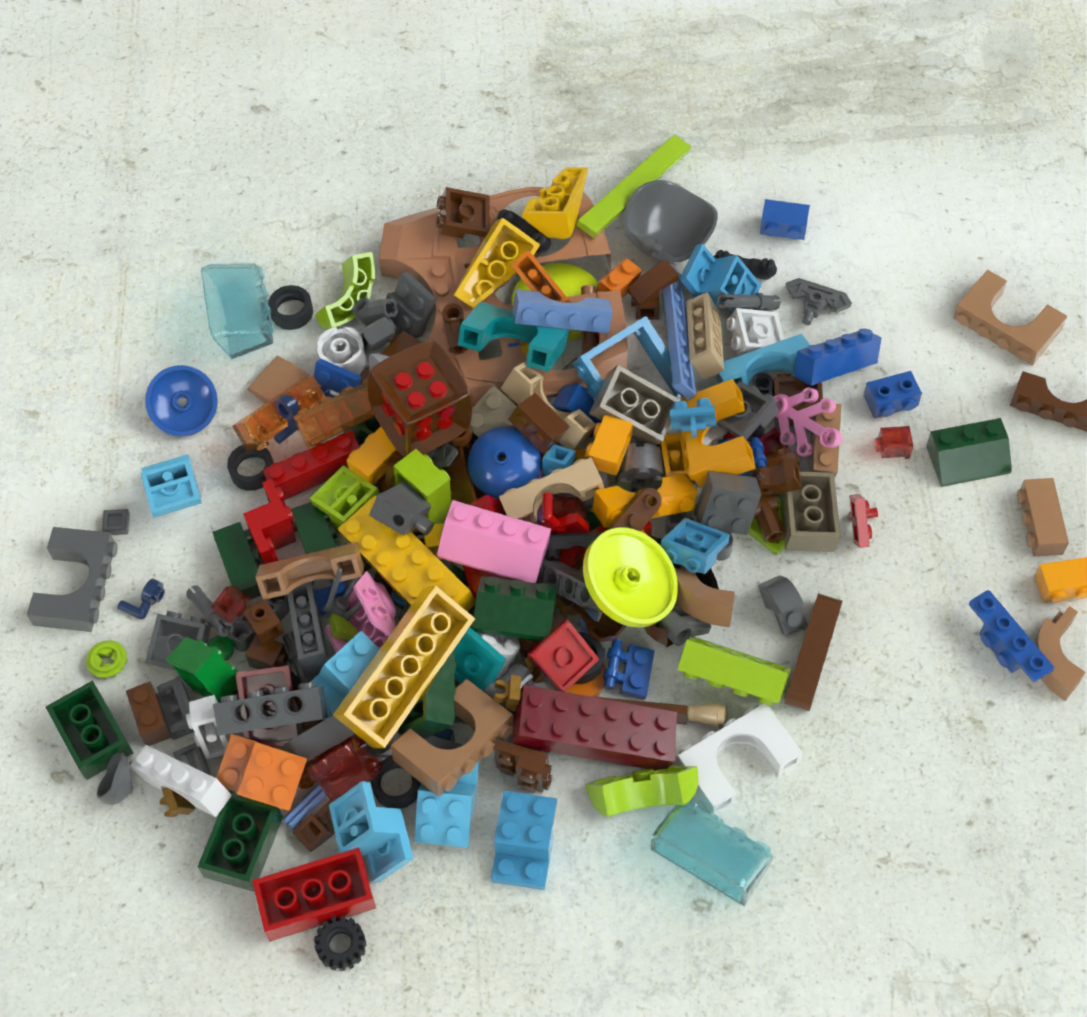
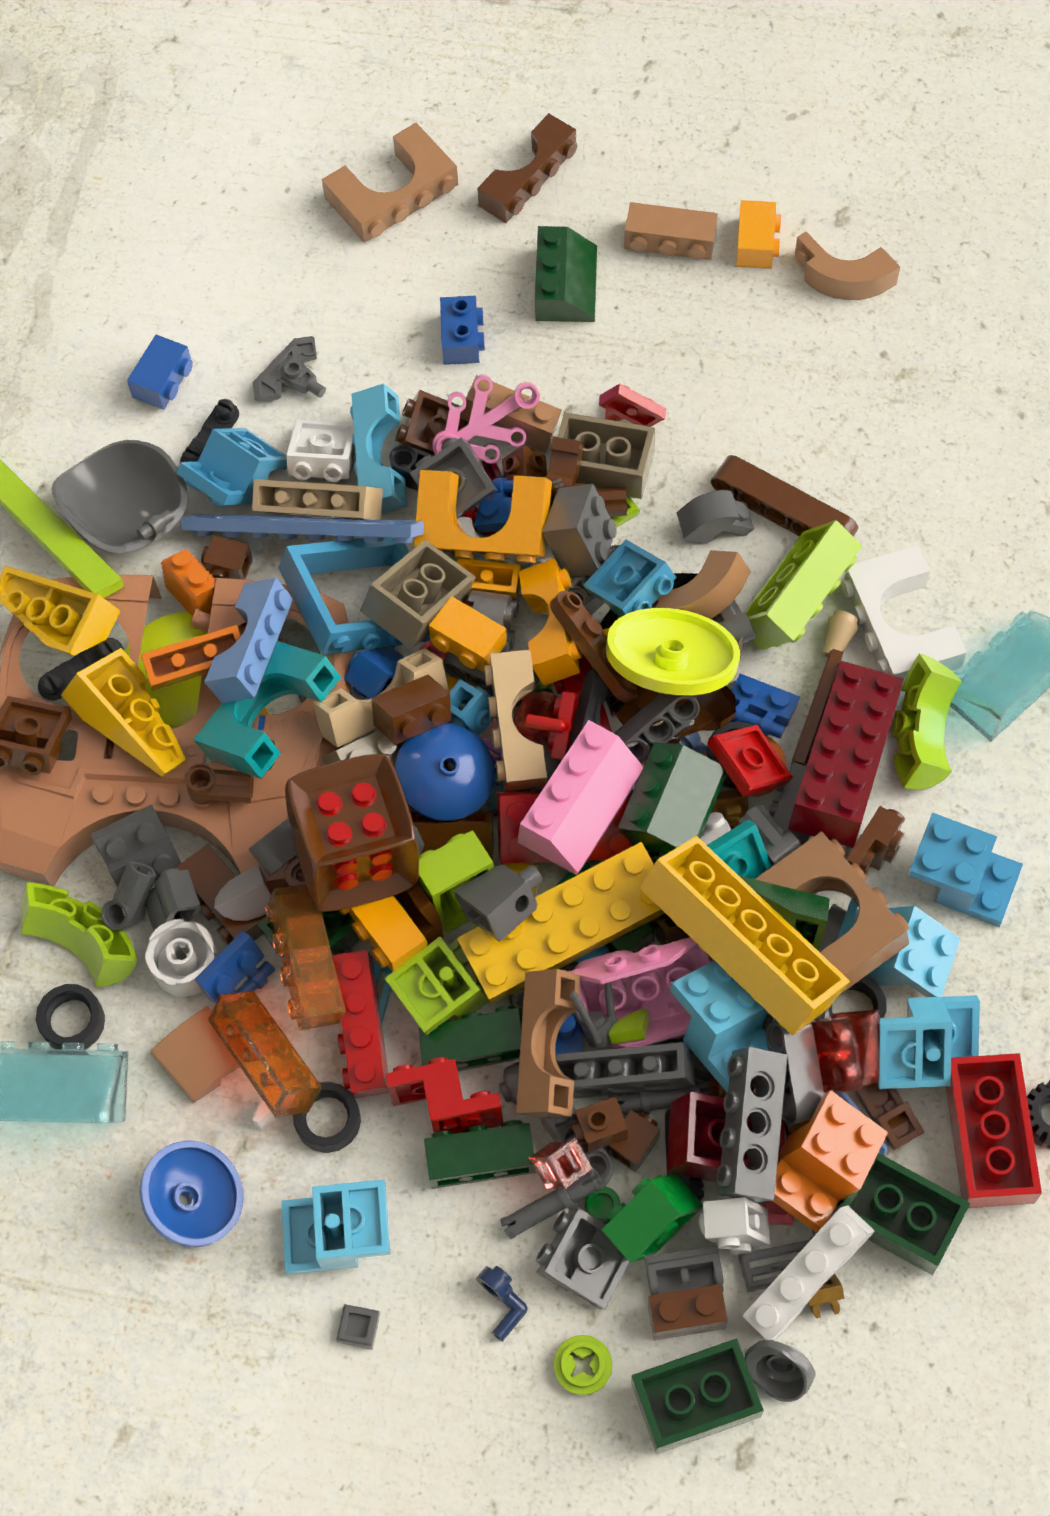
camera: 75 degrees left, 5 degrees up
(80, 608) = (407, 1358): dark grey arch -> none
(287, 407) = (280, 1027): dark blue plate -> none
(511, 692) = (793, 824): pearl gold tile -> none
(651, 282) = (216, 538): reddish brown slope -> none
(692, 418) = (465, 528): dark azure hips -> none
(756, 301) = (278, 435): dark grey pin -> none
(837, 356) = (400, 364): blue brick -> none
(894, 442) = (528, 351): clear red brick -> none
(1008, 639) = (821, 307): blue bracket -> none

